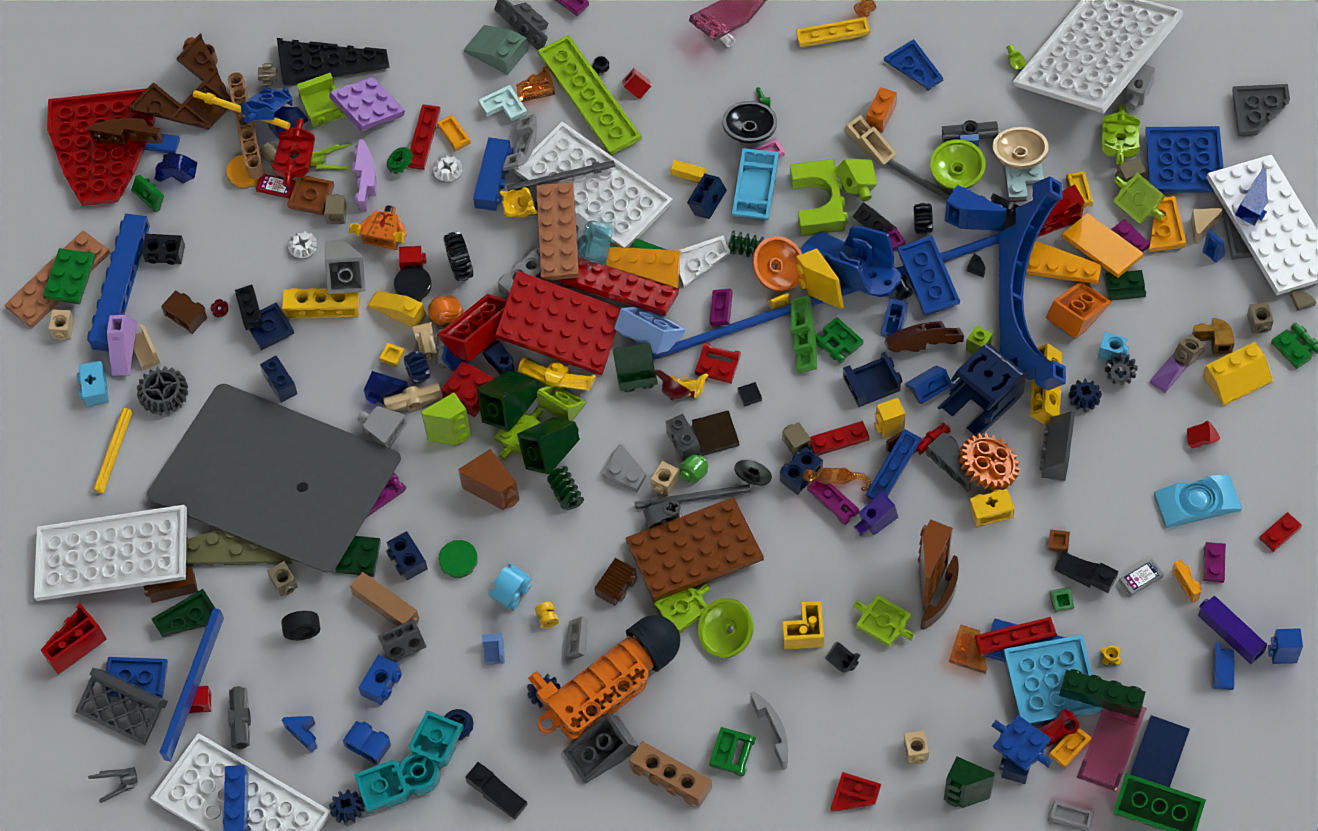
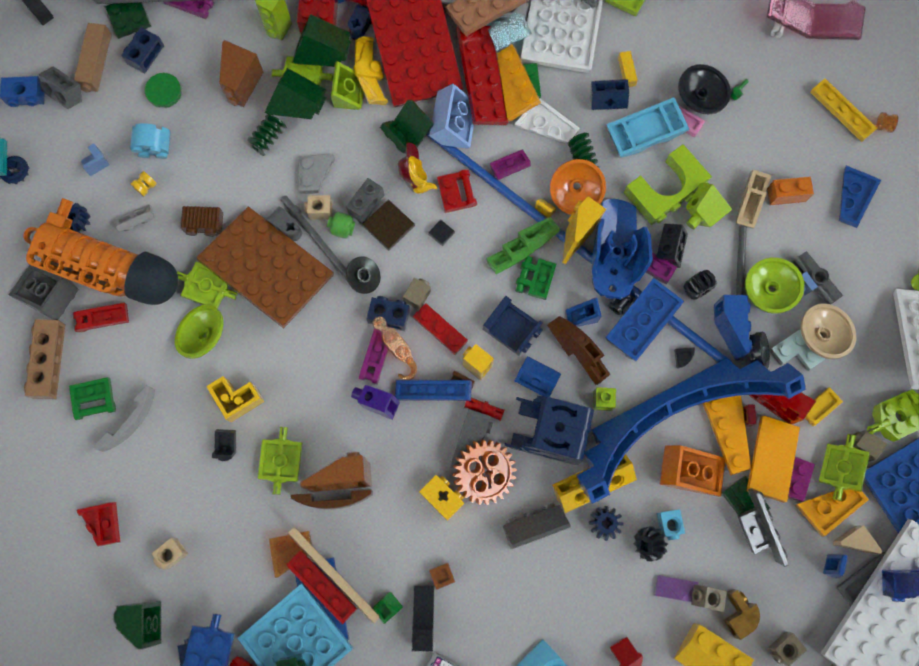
camera: 55 degrees right, 15 degrees up
(657, 710) = (101, 317): none -> red plate
(994, 622) = (333, 575): none -> tan tile
(1056, 242) = (749, 415): none -> dark red tile
(1155, 283) = (759, 528): none -> dark grey bracket

